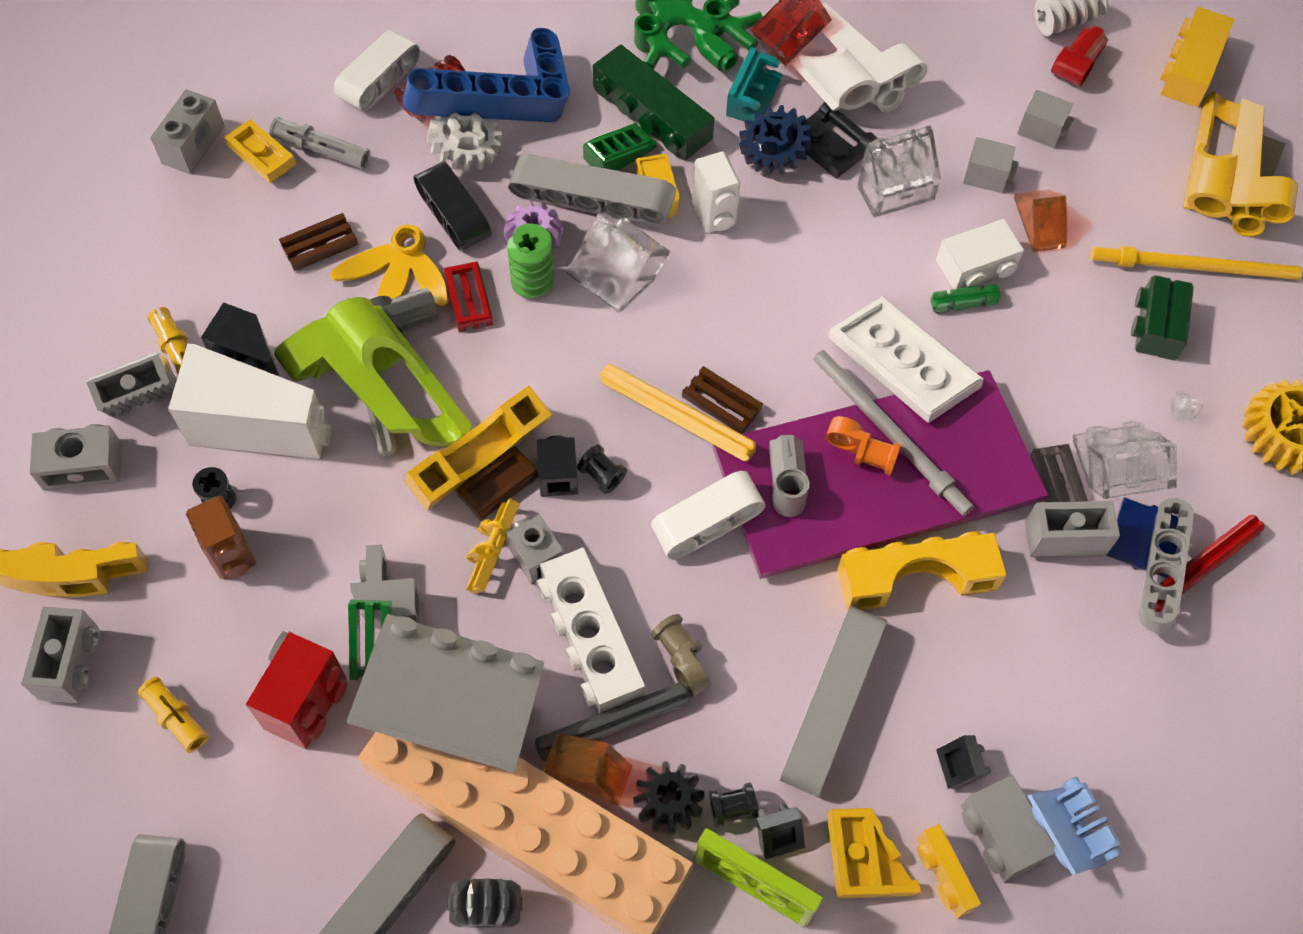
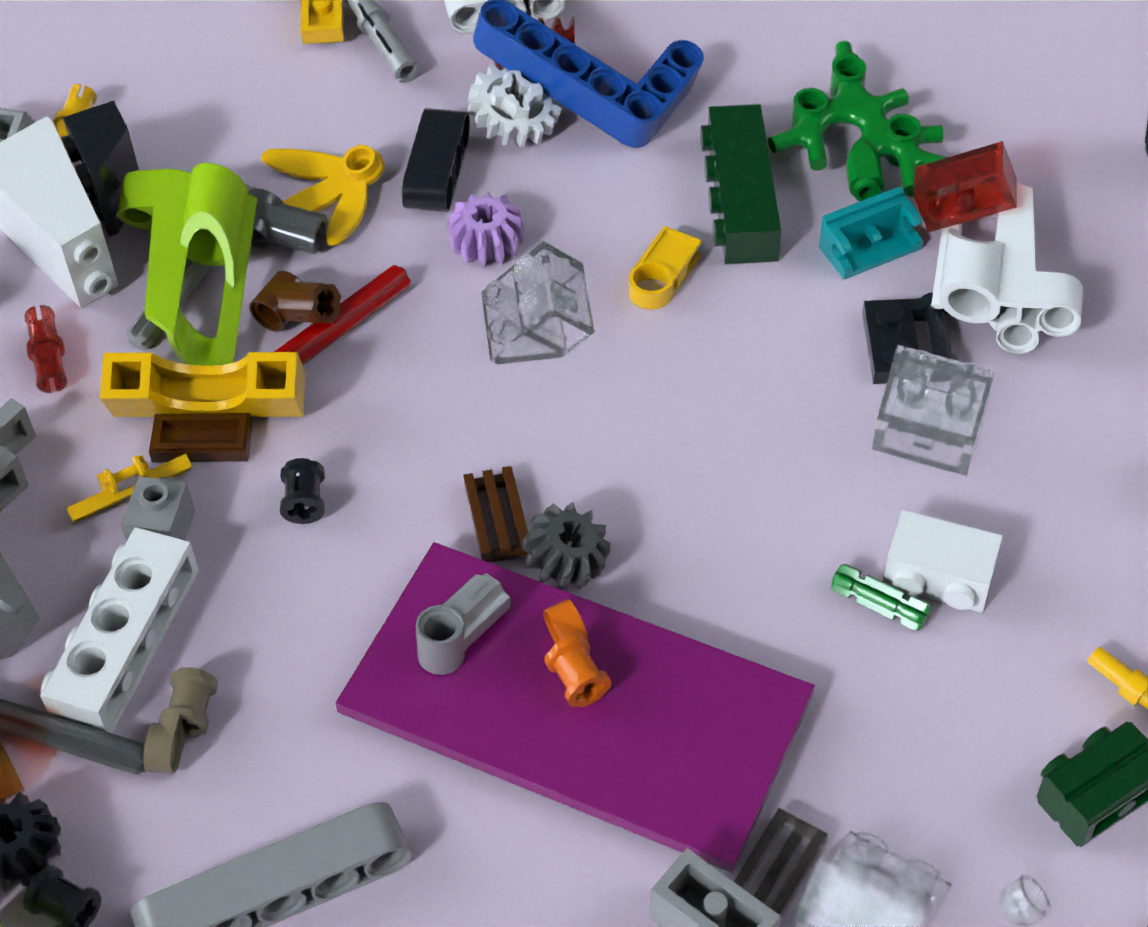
camera: 45 degrees right, 10 degrees down
(316, 237) = (283, 118): reddish brown tile -> none
(333, 500) = (45, 349): none -> clear red pin
(461, 359) = (290, 299): none -> reddish brown piece
(473, 318) = (372, 254): red tile -> none
(503, 350) = (353, 311): none -> red axle
(531, 261) = (439, 249): bright green piece -> none
(557, 466) = (258, 455): black brick -> none
(592, 189) = (583, 226): light grey beam -> none
(596, 148) = (640, 201): green slope -> none
(678, 412) = (430, 491): yellow axle -> none
(708, 515) = (344, 604): white beam -> none
(715, 192) = (698, 301): white brick -> none
(775, 140) = (832, 296): dark blue gear -> none
(788, 389) = (566, 546): none -> dark grey gear
(905, 359) = (730, 608): white tile -> none
(939, 481) = (618, 751): light grey bar -> none
(967, 562) = (448, 796): yellow arch -> none
(990, 165) = (1063, 476): light grey brick -> none
(1043, 218) = (1070, 578): clear orange slope -> none

